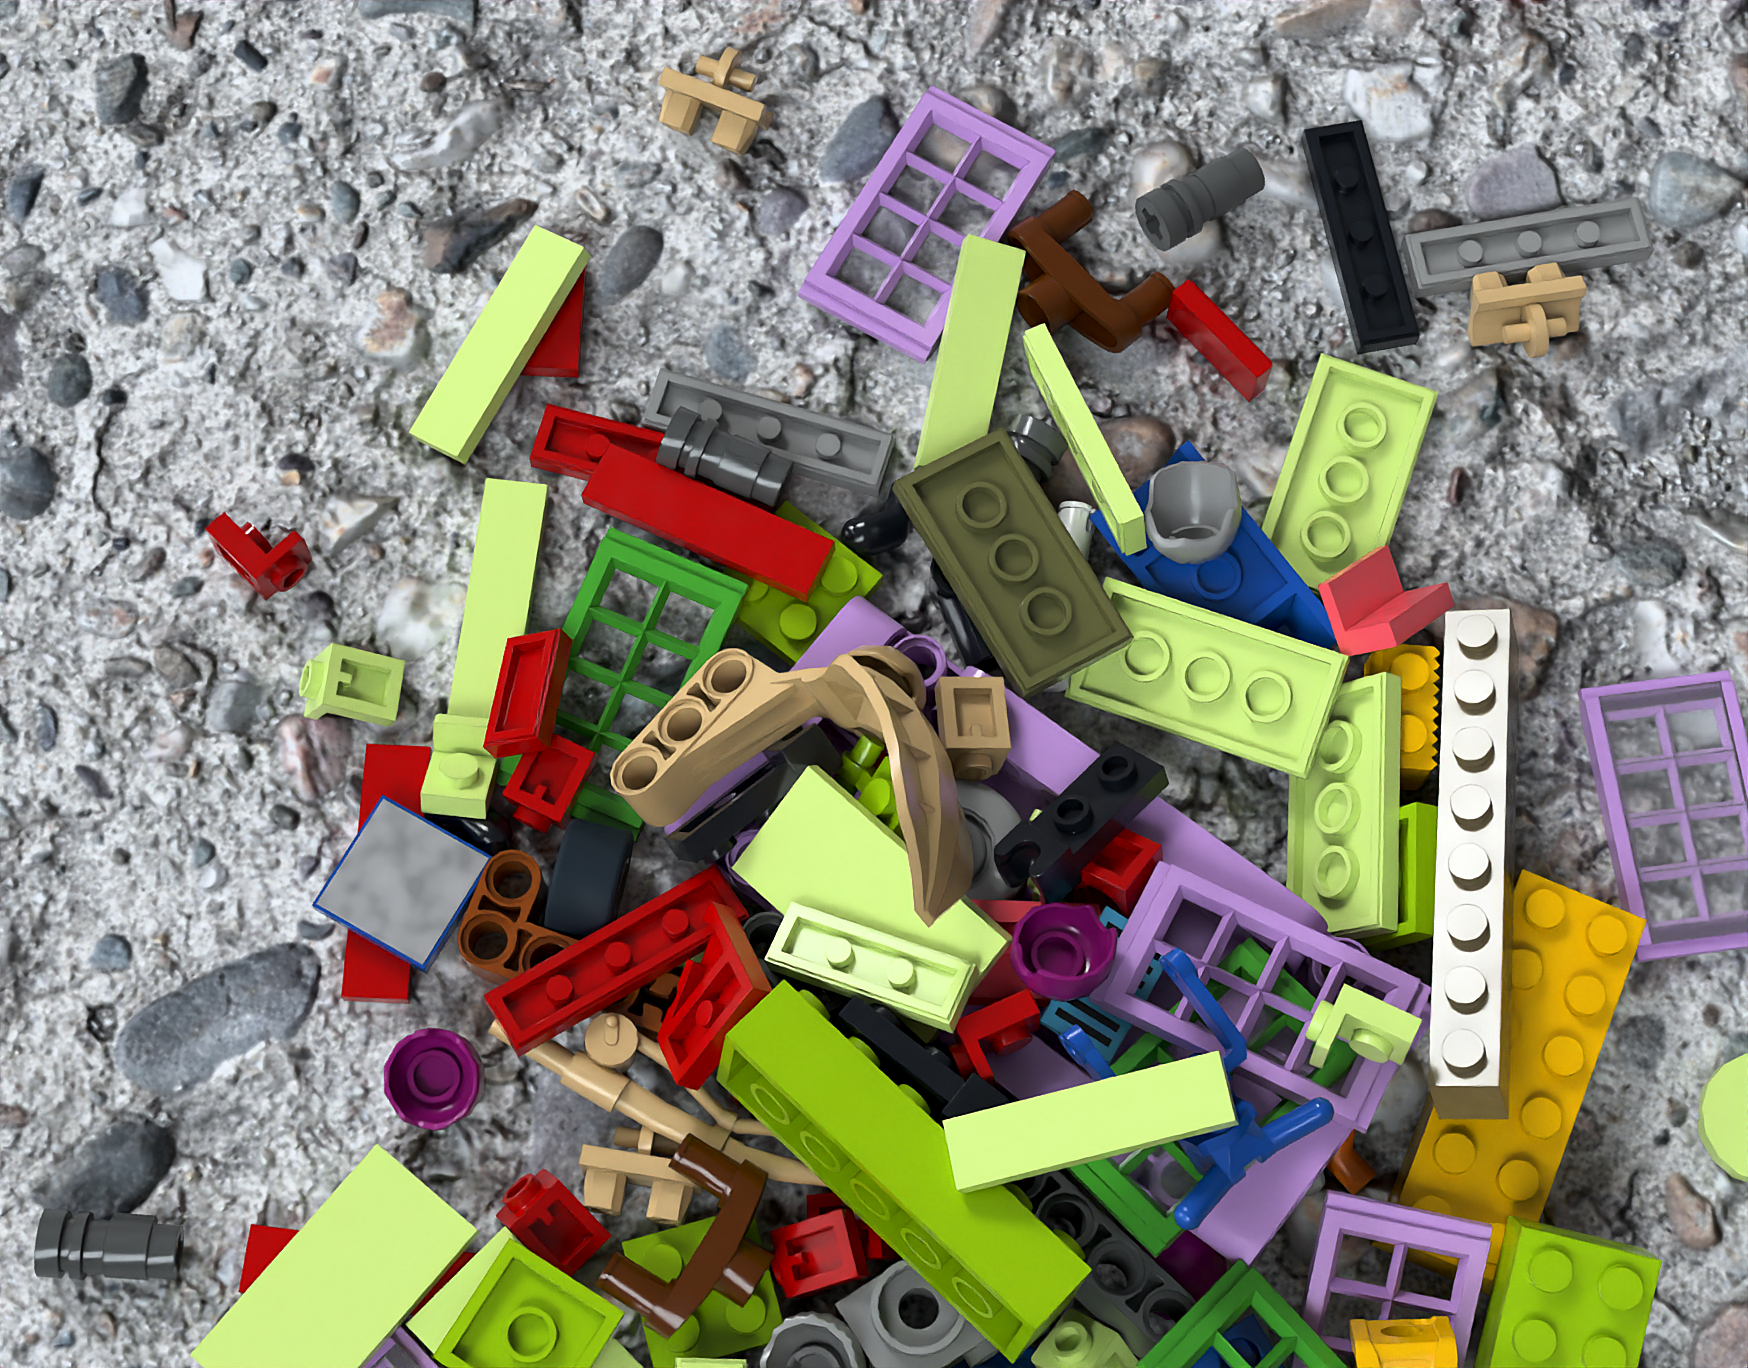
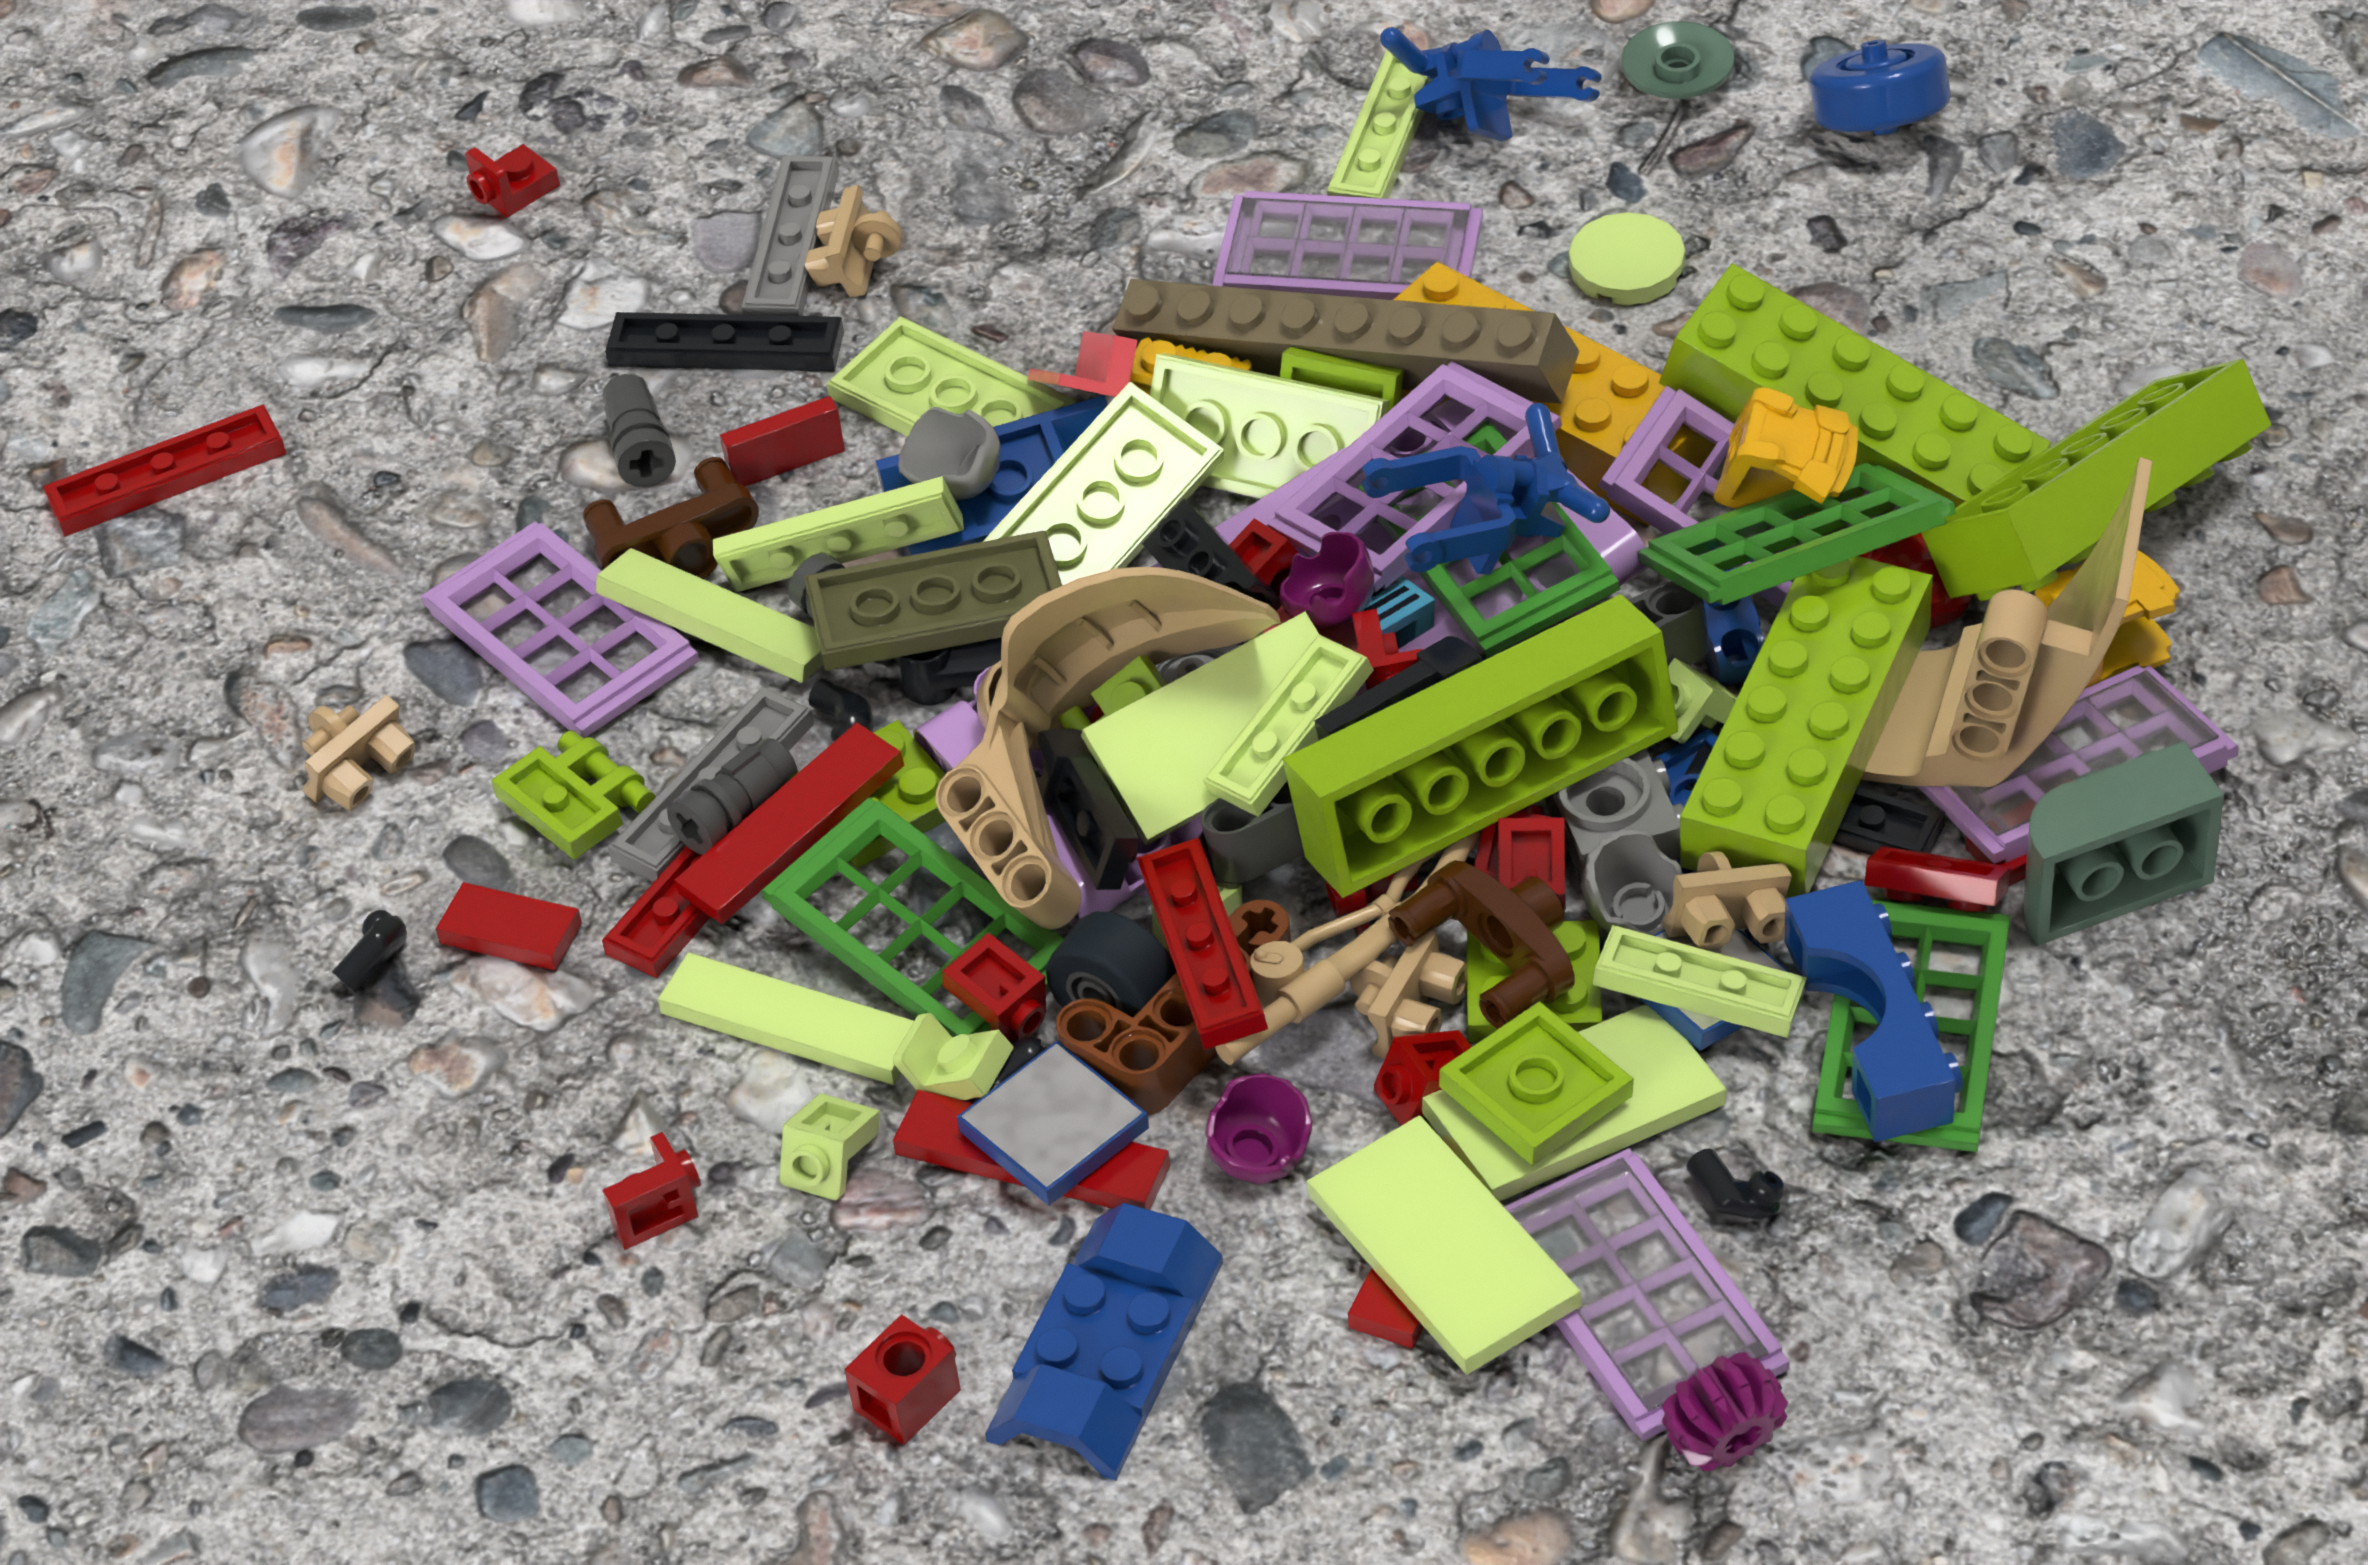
camera: 65 degrees left, 25 degrees down
(72, 829) = (896, 1401): none -> red brick
(117, 1248) = (1329, 1428): dark grey axle -> none
(180, 1009) = (1109, 1336): none -> blue piece
(483, 210) = (381, 940): none -> black arm
(500, 344) = (525, 957): yellowish green tile -> none
(528, 693) = (905, 975): red tile -> none
(703, 302) = (563, 805): none -> lime plate
(711, 1000) = (1273, 856): red wing -> none
(1090, 1122) = (1496, 545): yellowish green tile -> none
(1370, 1025) = (1472, 384): yellowish green bracket -> none

